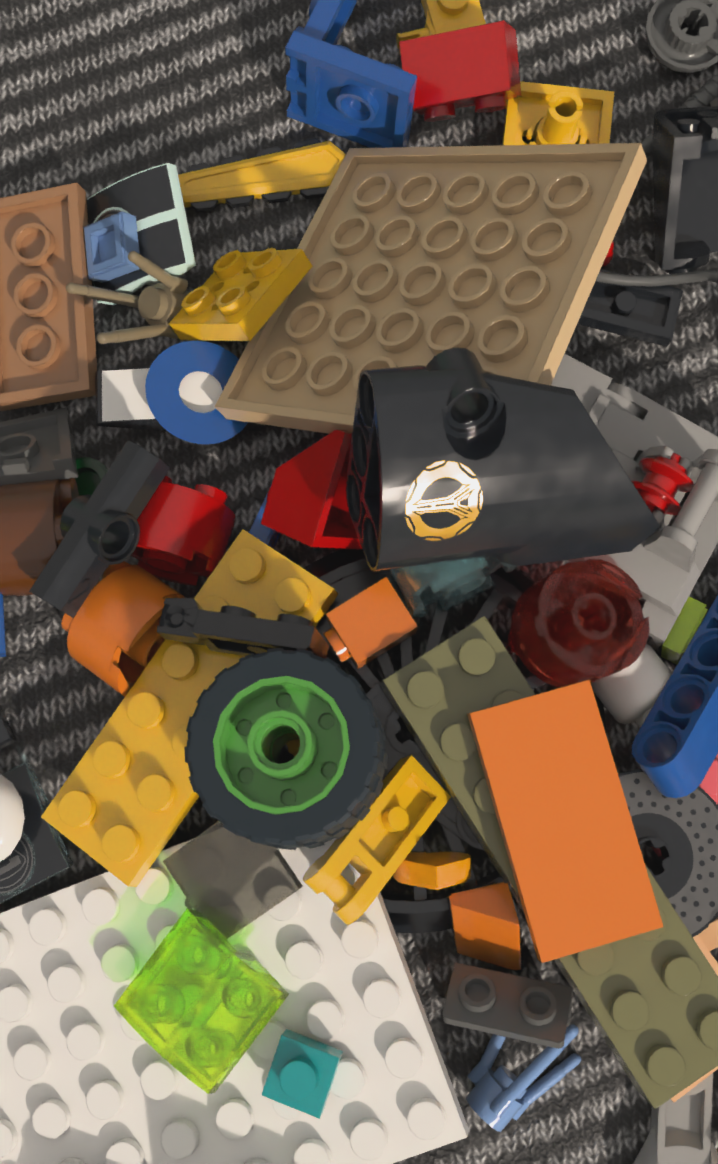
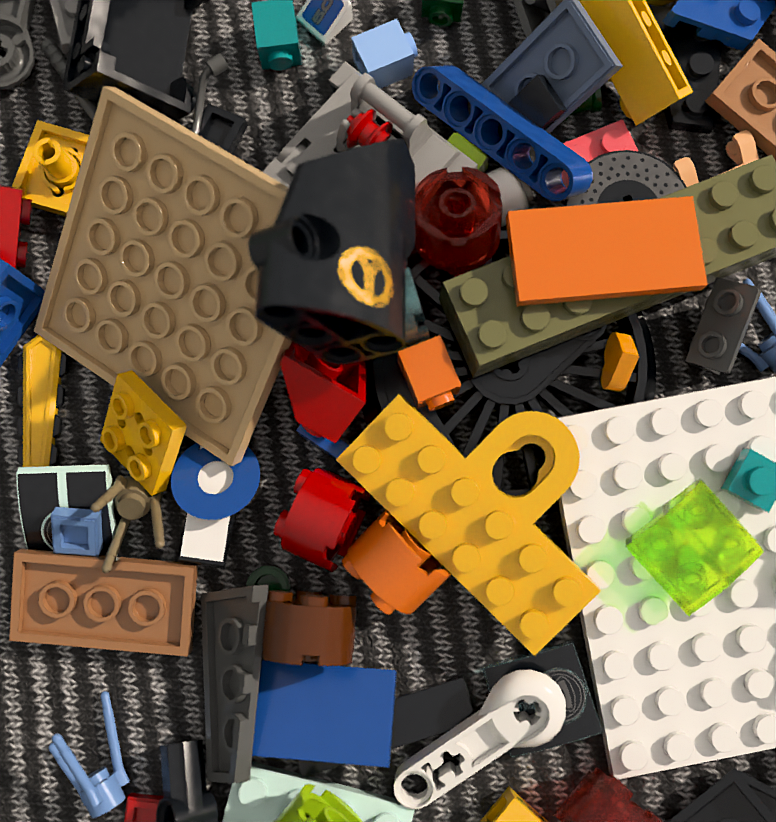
camera: 80 degrees left, 0 degrees up
(100, 529) = (319, 567): black piece -> none
(231, 878) = (602, 507): clear smoke piece -> none
(237, 629) = (423, 469): black hinge -> none
(248, 721) = (560, 415): wheel -> none
(379, 841) = (595, 394): yellow plate -> none
(487, 925) = (663, 330): orange slope -> none

